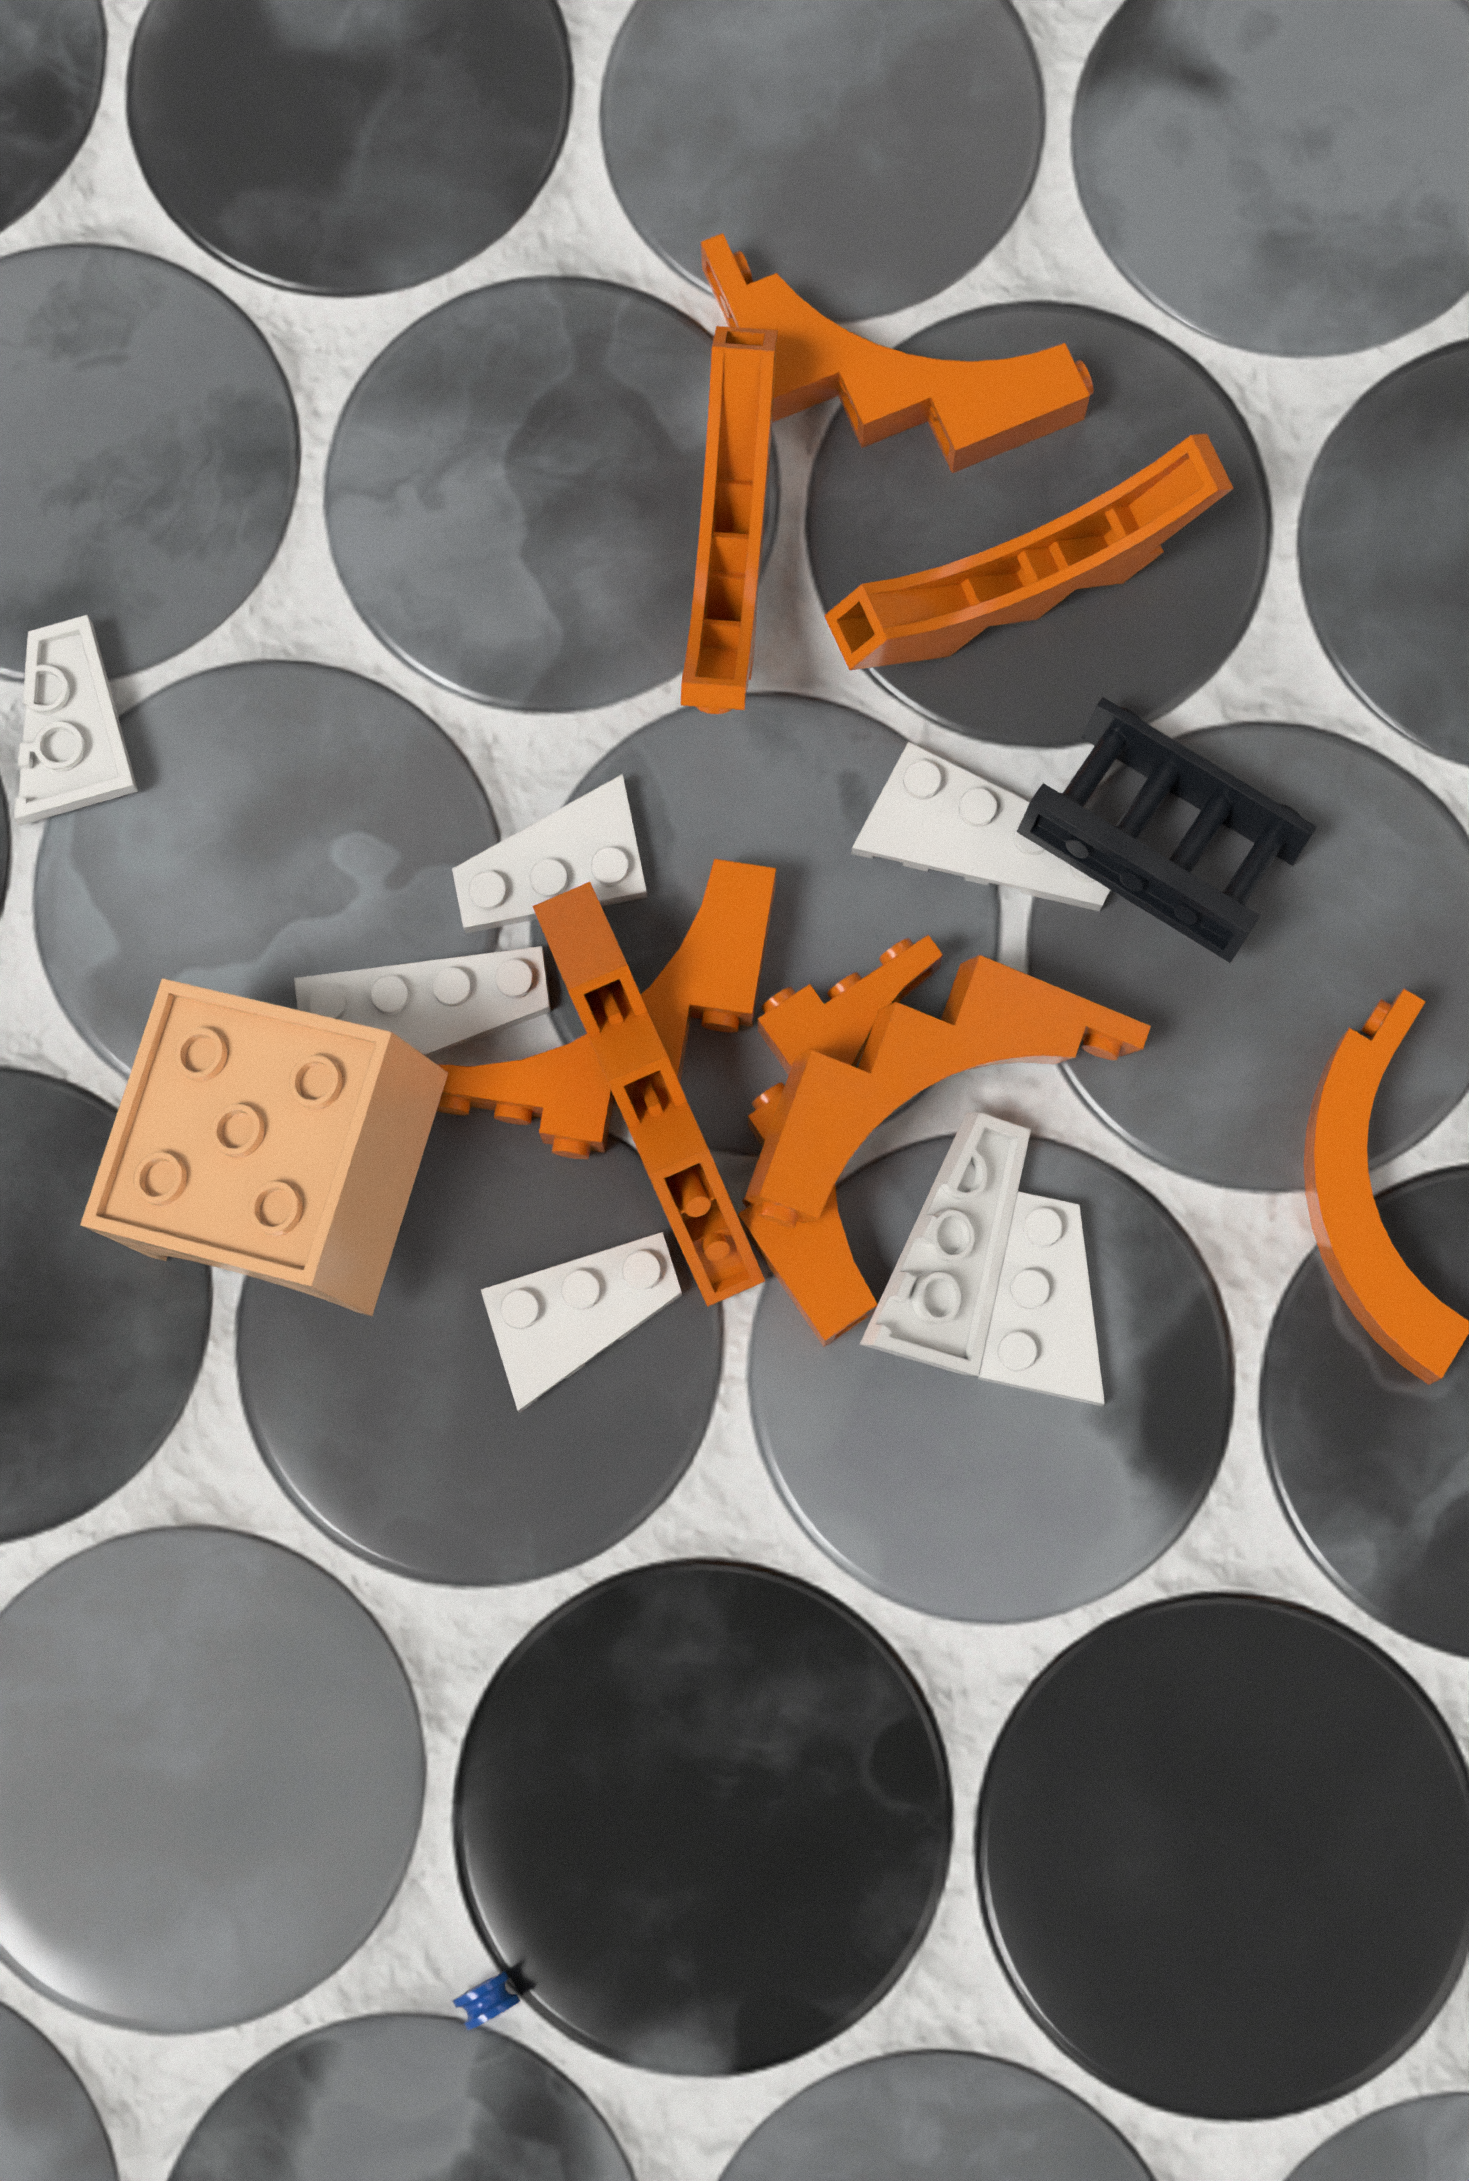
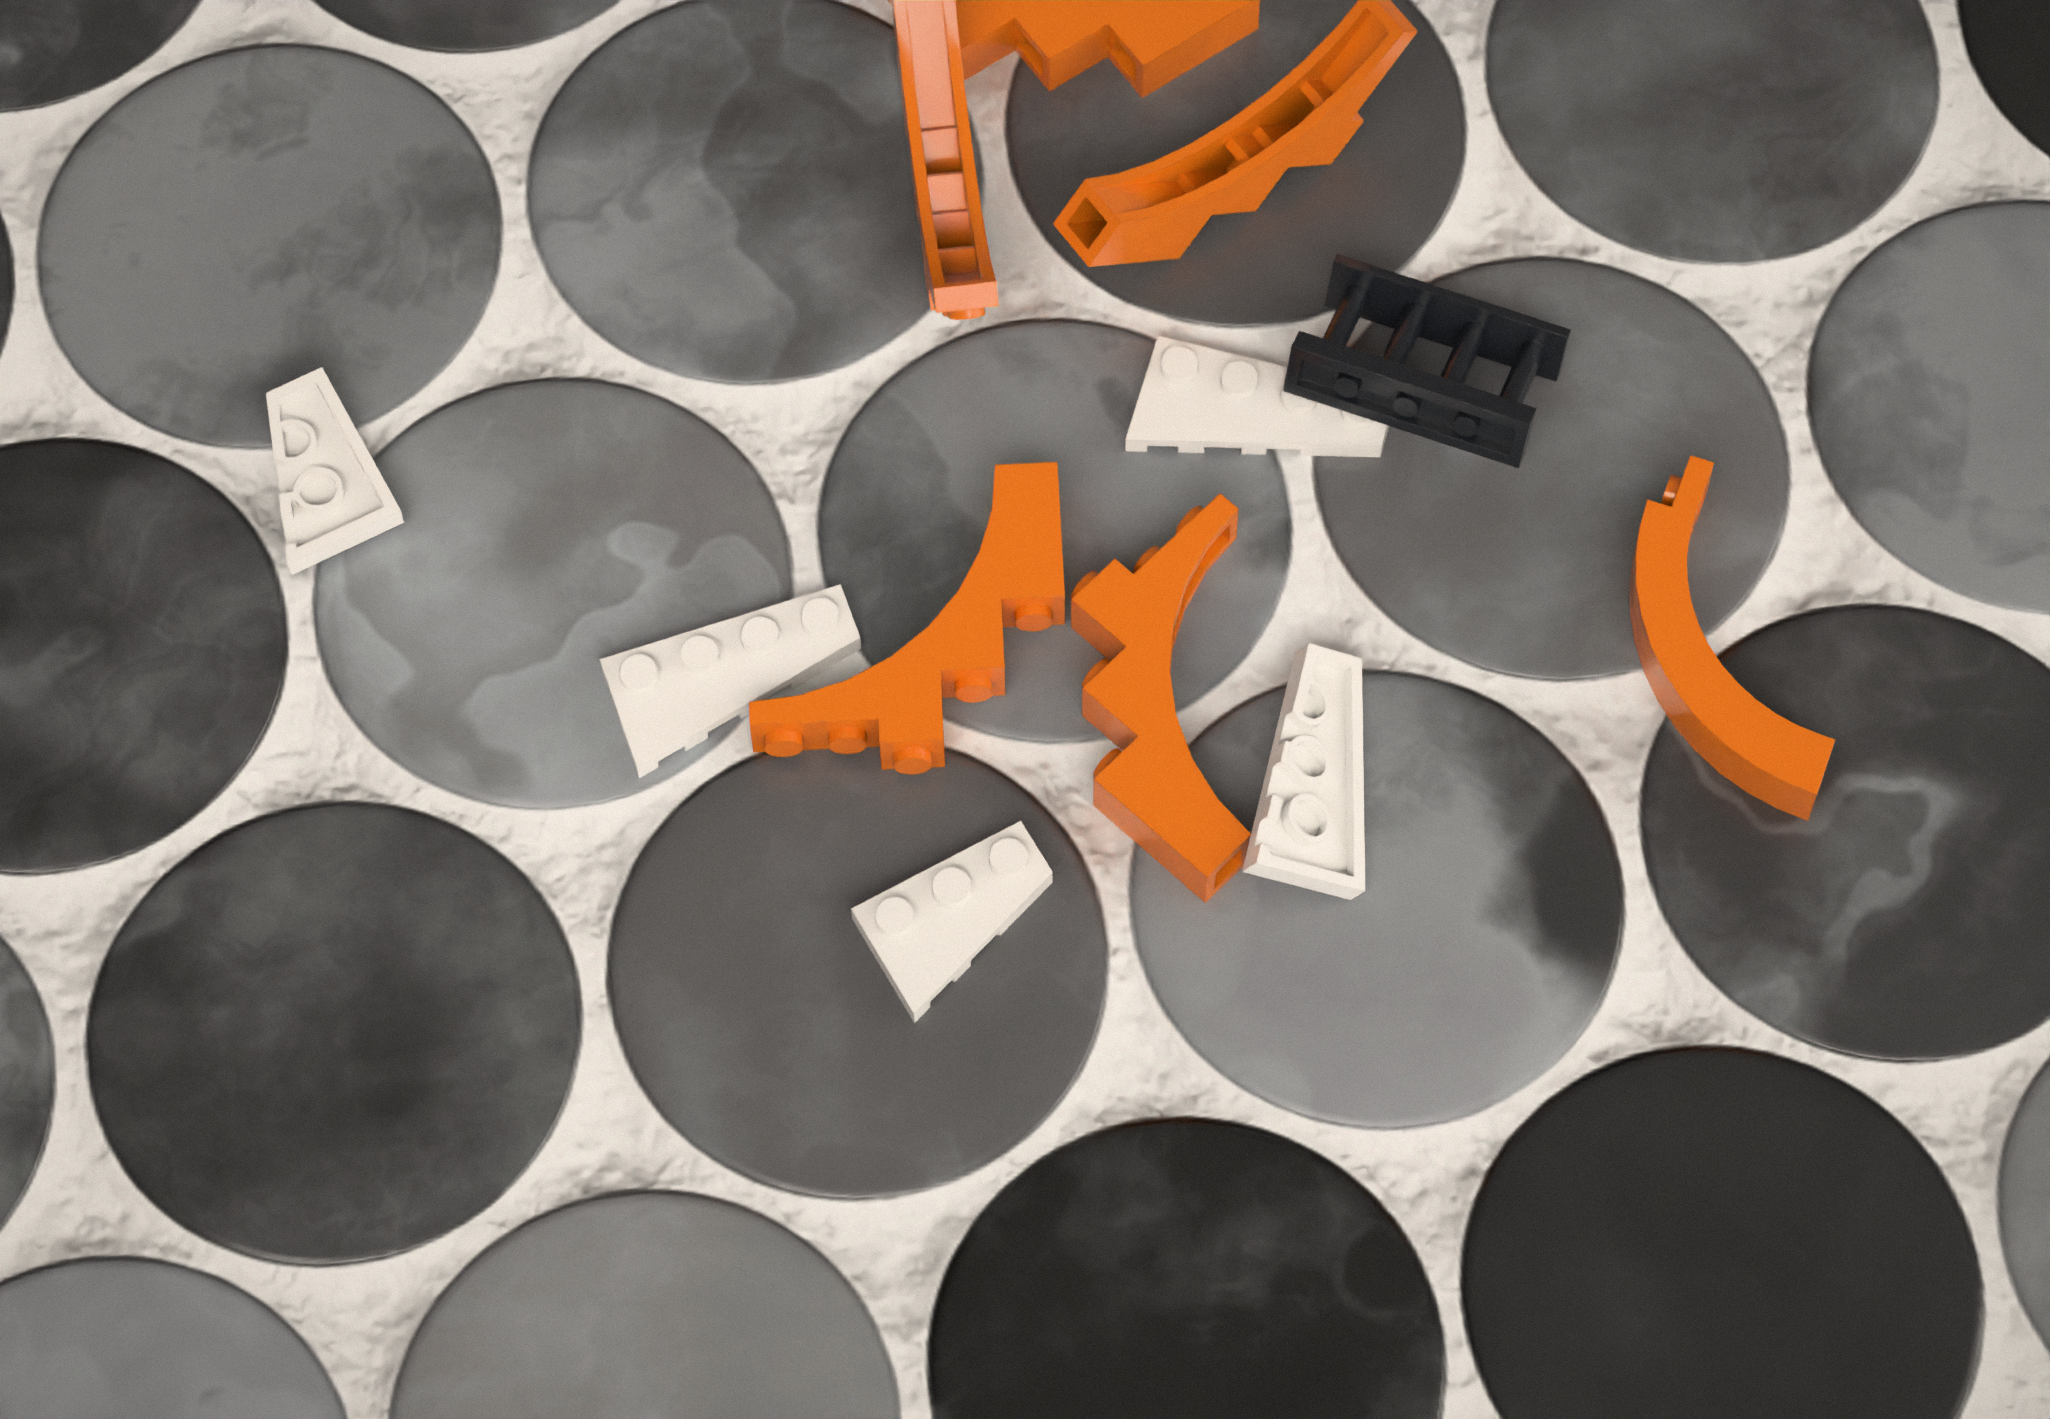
camera: 15 degrees left, 15 degrees down
(266, 1143) = (614, 784): light nougat container -> none
(567, 848) = (836, 512): white wing -> none
(648, 1094) = (971, 659): orange arch -> none
(988, 1020) = (1300, 558): orange arch -> none
(1043, 1308) = (1414, 821): white wing -> none

